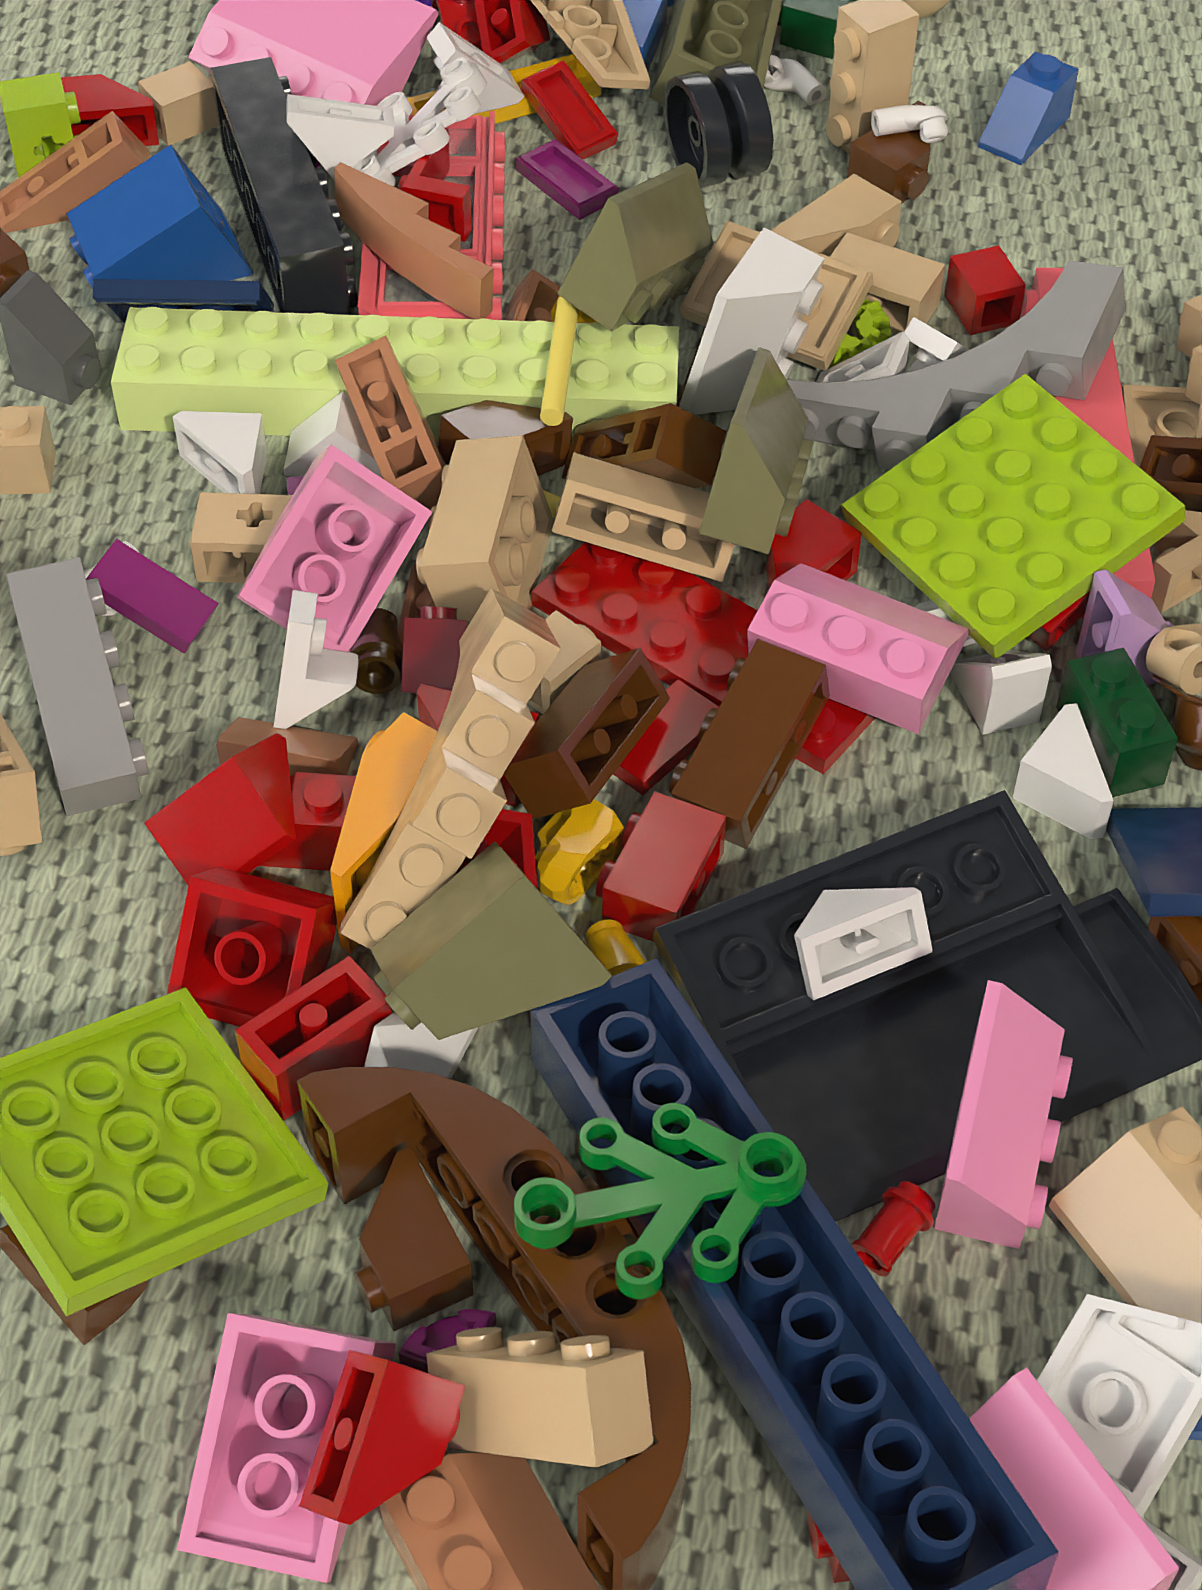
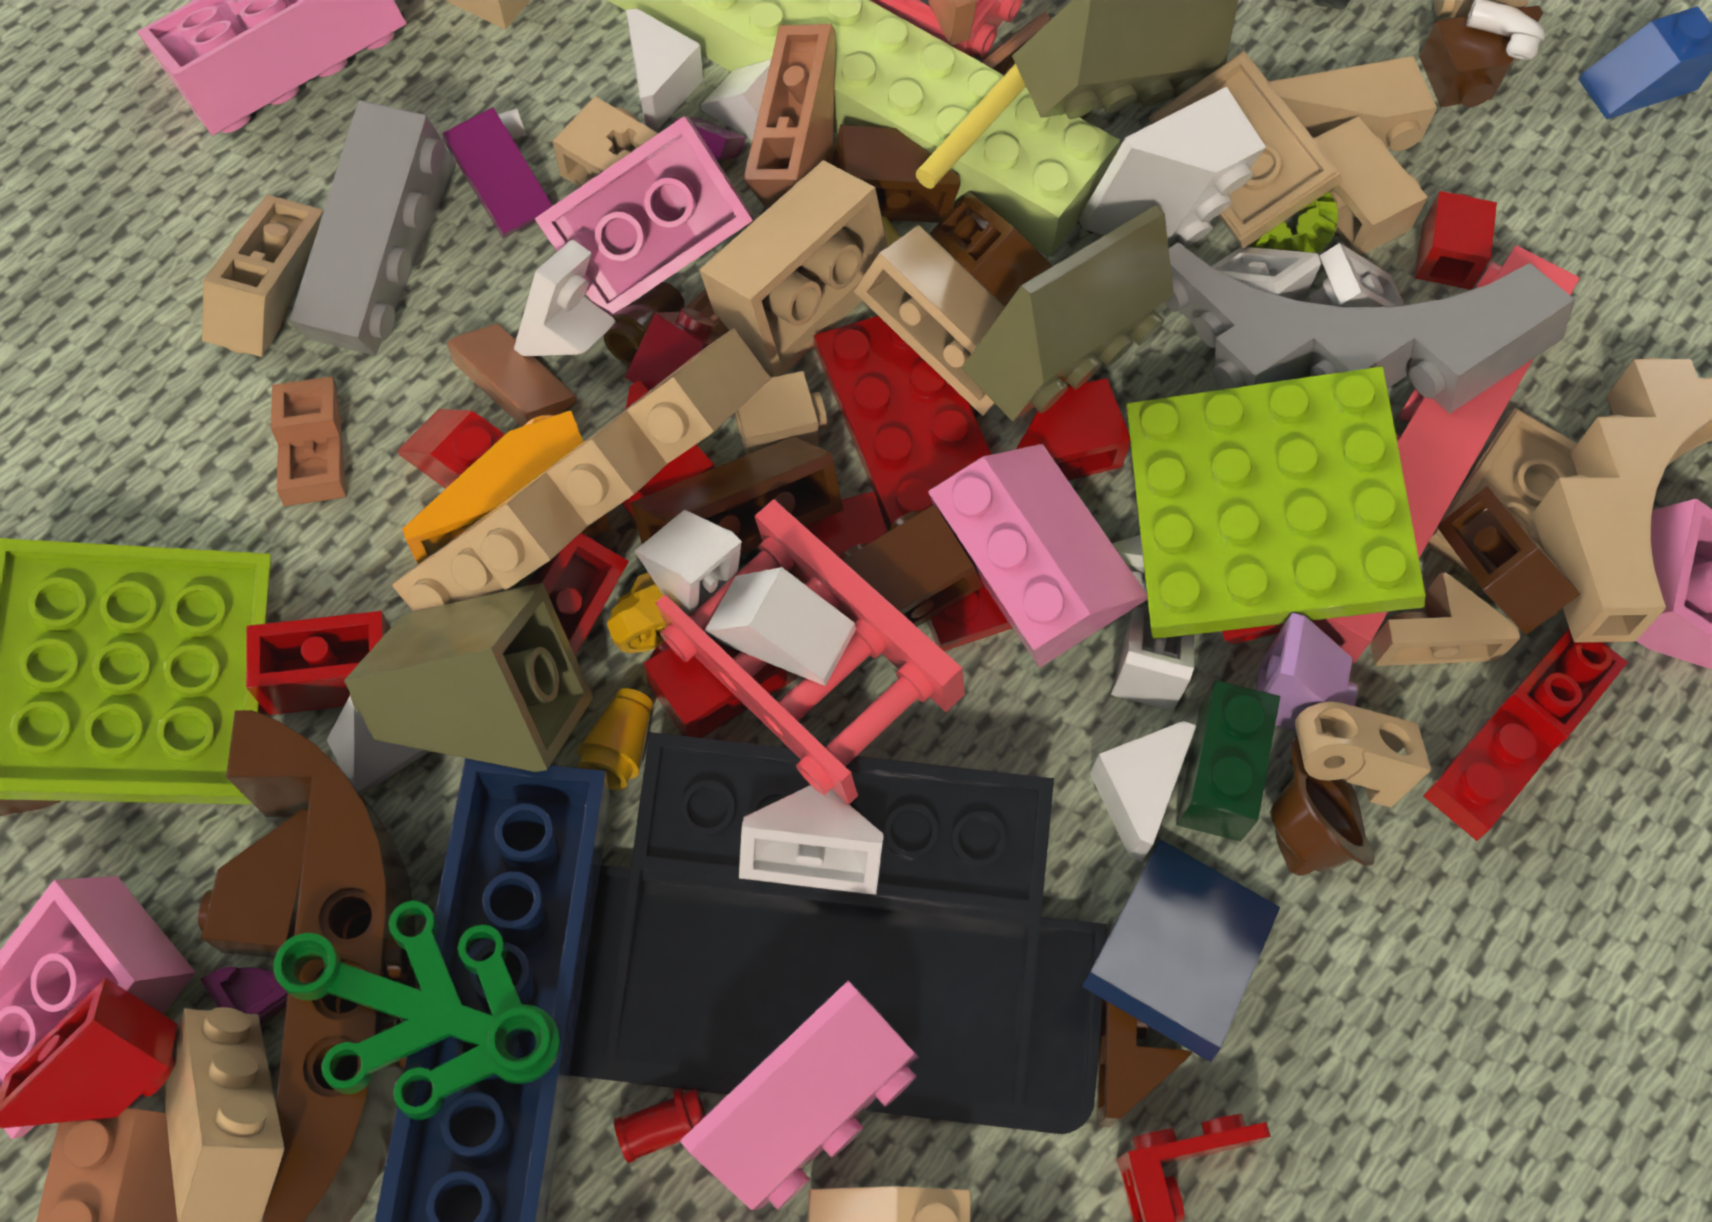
camera: 30 degrees right, 15 degrees up
(134, 887) = (308, 441): none -> nougat slope
(232, 814) = (400, 421): red slope -> none
(249, 942) = (340, 541): red slope -> none
(601, 769) = (690, 559): none -> white slope
(715, 768) = (782, 624): none -> white slope
(757, 736) = (880, 629): none -> coral fence

